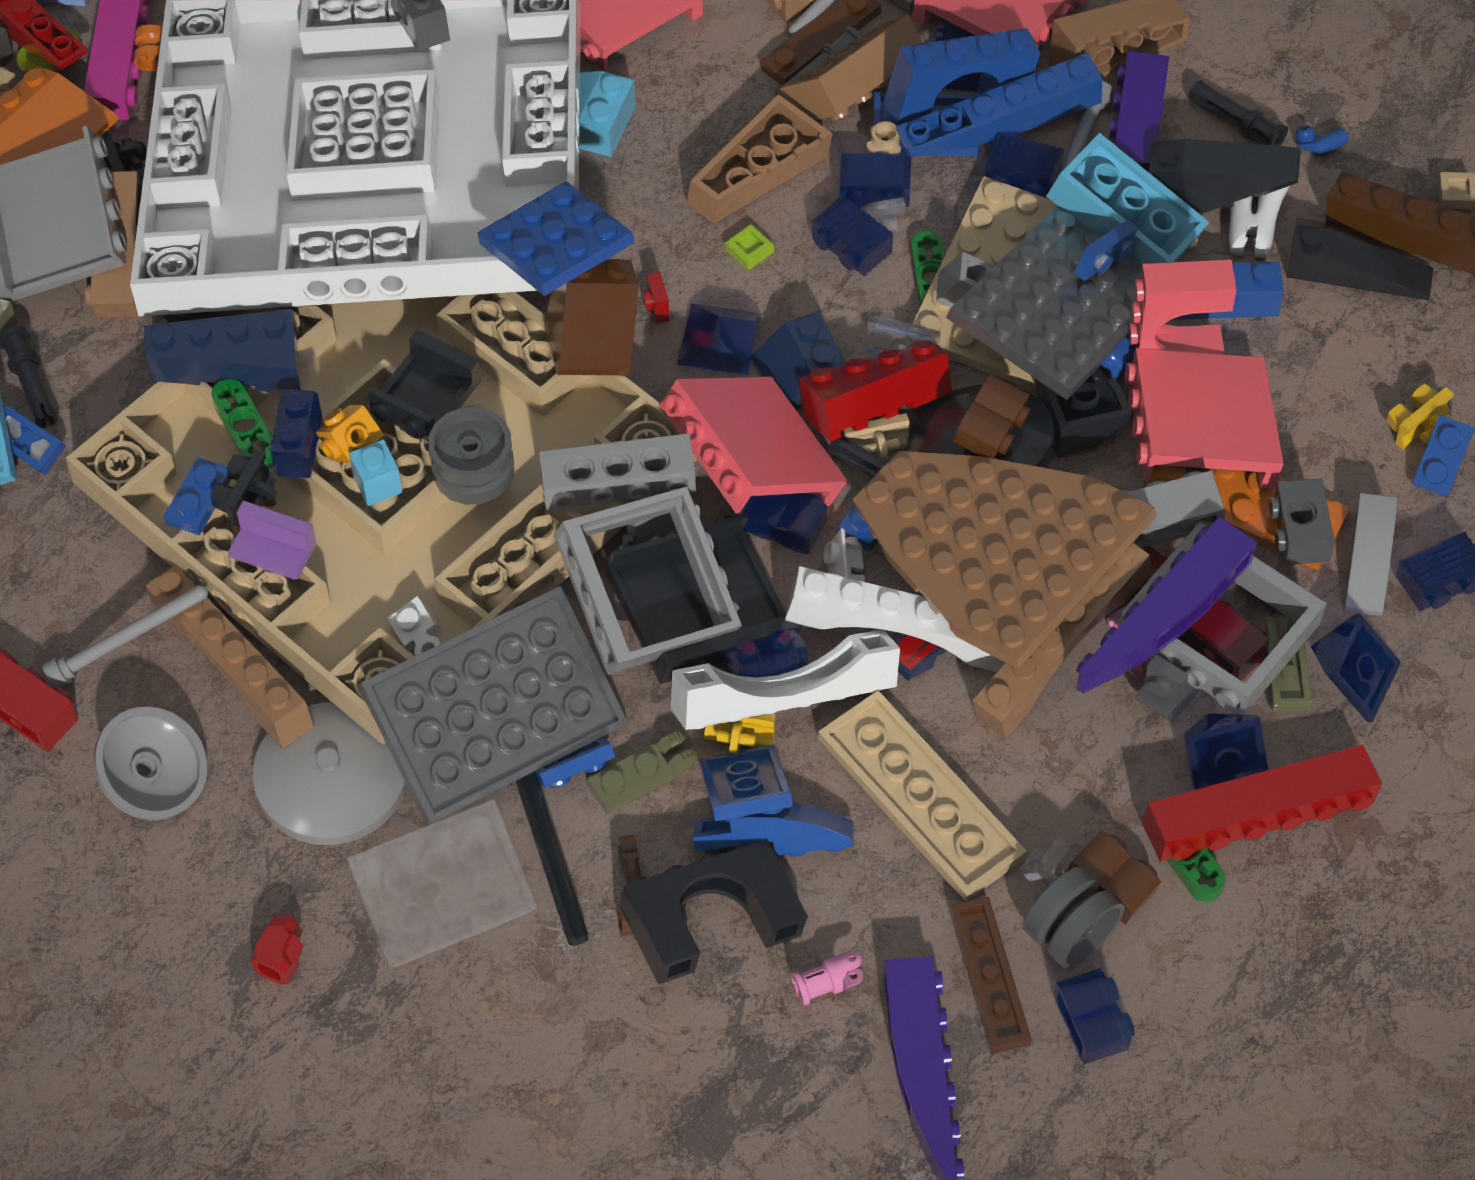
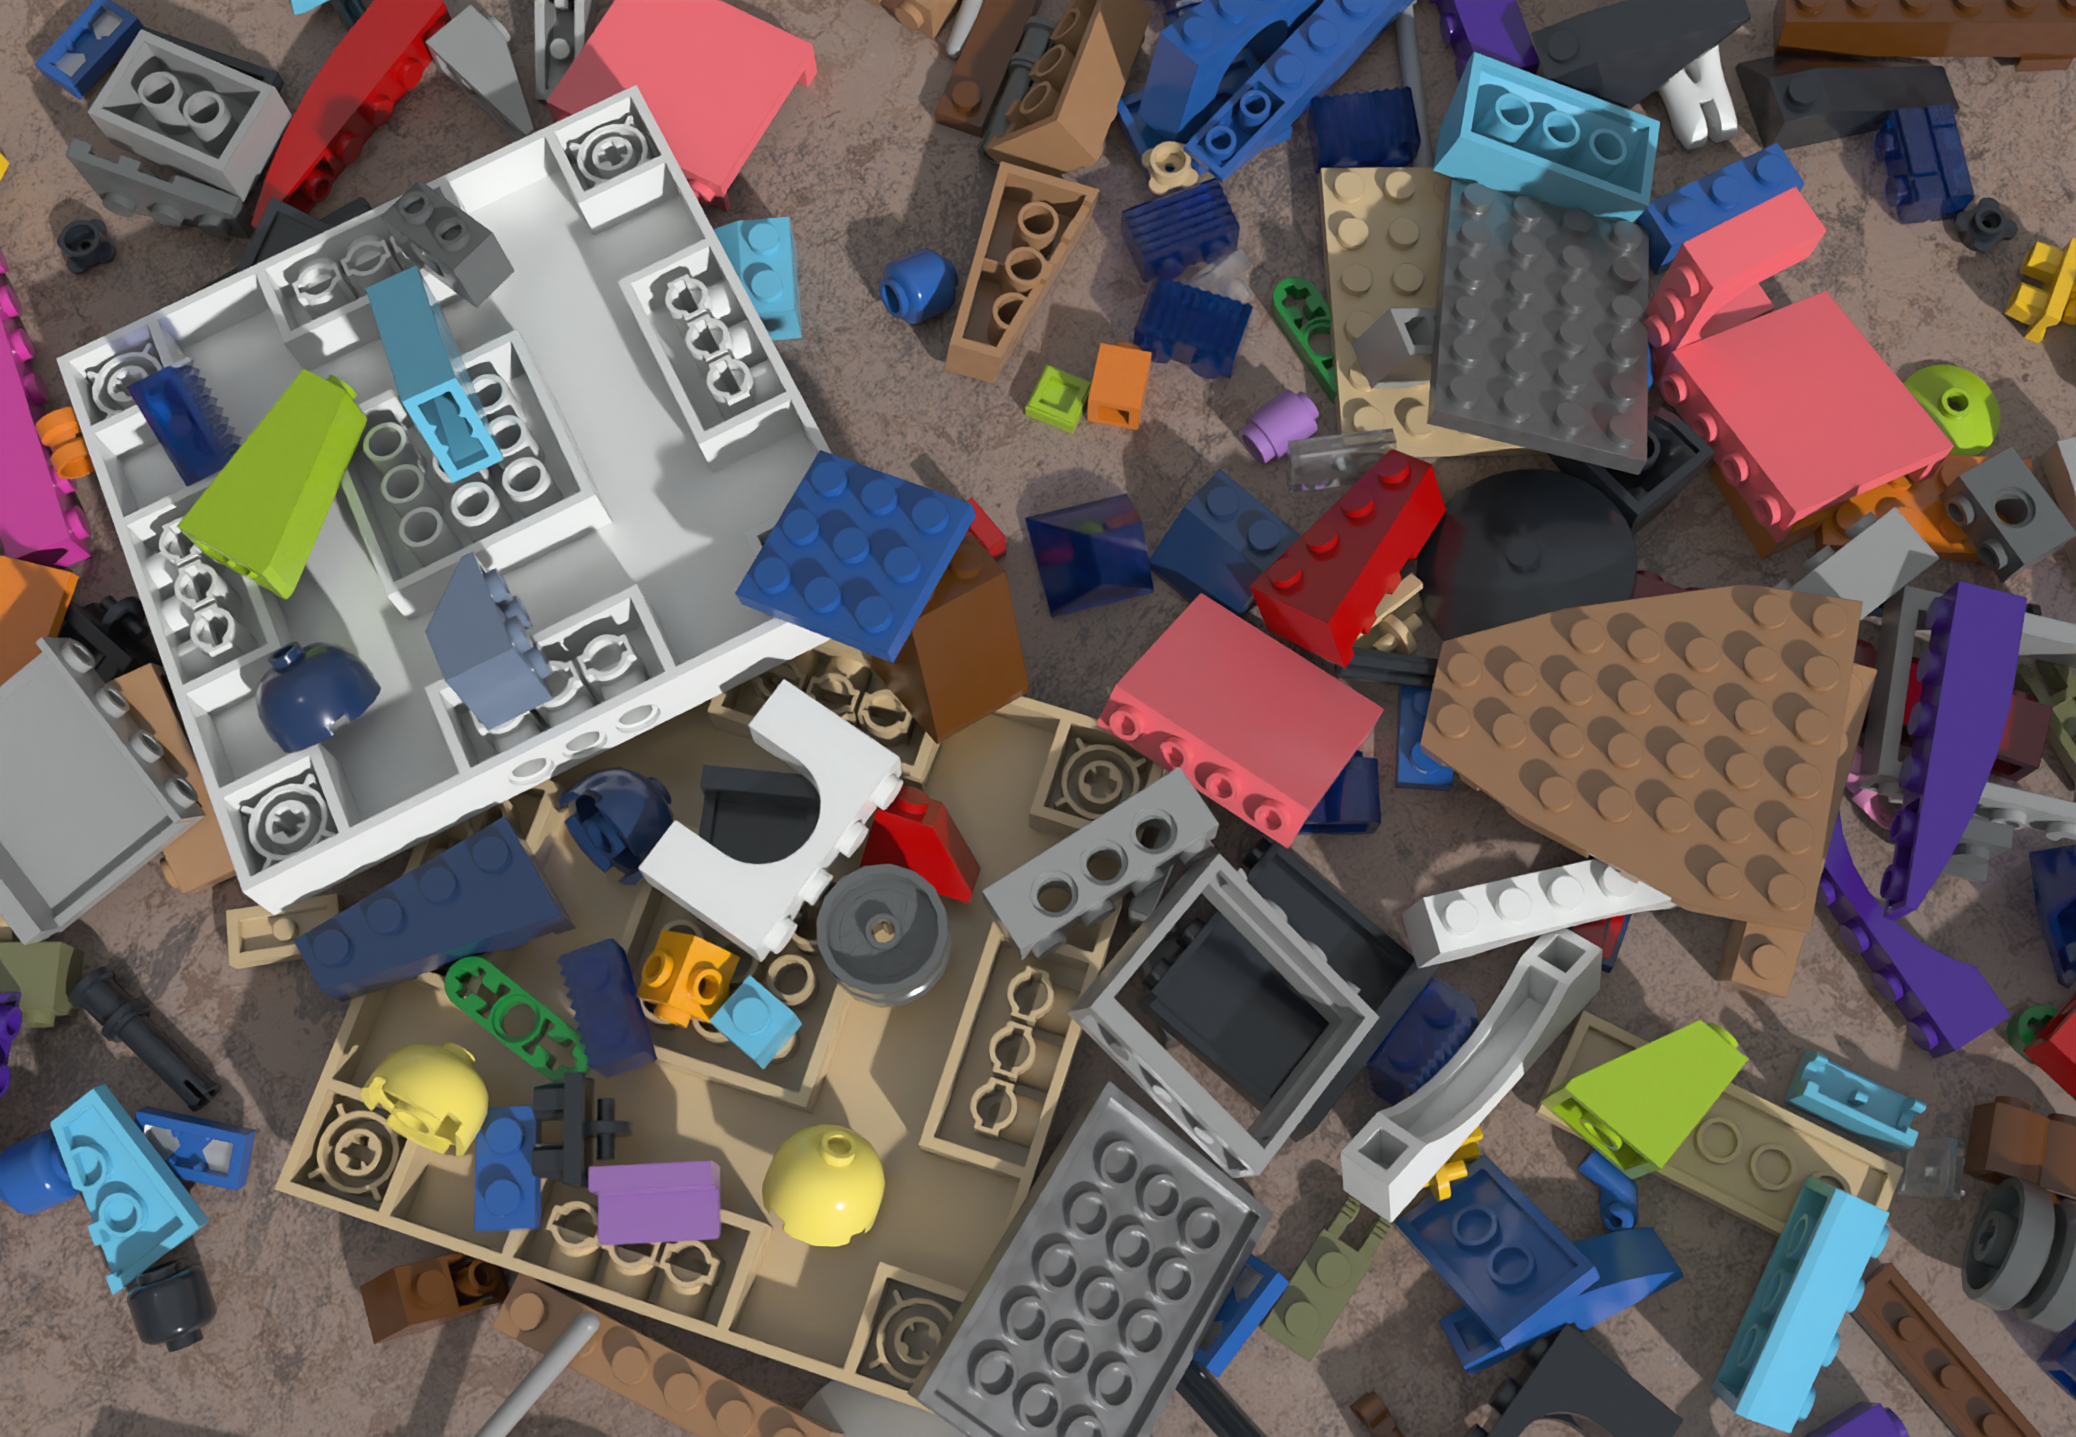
camera: 25 degrees left, 15 degrees up
(118, 563) = (430, 1294): none -> reddish brown slope
(123, 350) = (265, 938): none -> tan plate
(175, 435) = (431, 1095): none -> light yellow cylinder
(219, 203) = (311, 691): none -> dark blue cylinder
(223, 49) = (186, 420): none -> clear blue brick
(257, 96) = (280, 484): none -> lime slope
(326, 205) = (486, 647): none -> sand blue slope
(355, 341) = (618, 818): none -> dark blue cylinder
(371, 575) = (824, 1184): none -> light yellow cylinder
(372, 71) = (432, 374): none -> medium azure slope
(411, 401) = (759, 901): none -> white arch
(415, 626) = (920, 1223): white plate -> none
(526, 423) = (924, 839): none -> red slope
(693, 149) = (918, 286): none -> blue head
(788, 250) = (1119, 385): none -> orange brick
(844, 556) = (1426, 823): white hinge -> none
(846, 795) = (1616, 1192): none -> blue arm
(877, 303) = (1280, 420): none -> medium lavender brick
(881, 728) = (1649, 1098): none -> lime slope
(913, 881) = (1800, 1305): none -> medium azure slope
(992, 418) = (1556, 546): reddish brown brick -> none
(1018, 809) = (1853, 1103): none -> medium azure hinge
(1105, 250) = (1572, 214): blue piece -> none
(1107, 768) = (1937, 995): none -> dark purple arch
(1334, 470) = (1979, 415): none -> lime dish
(1381, 315) = (1924, 164): none -> clear blue brick
(1399, 375) = (1976, 235): none -> black plate

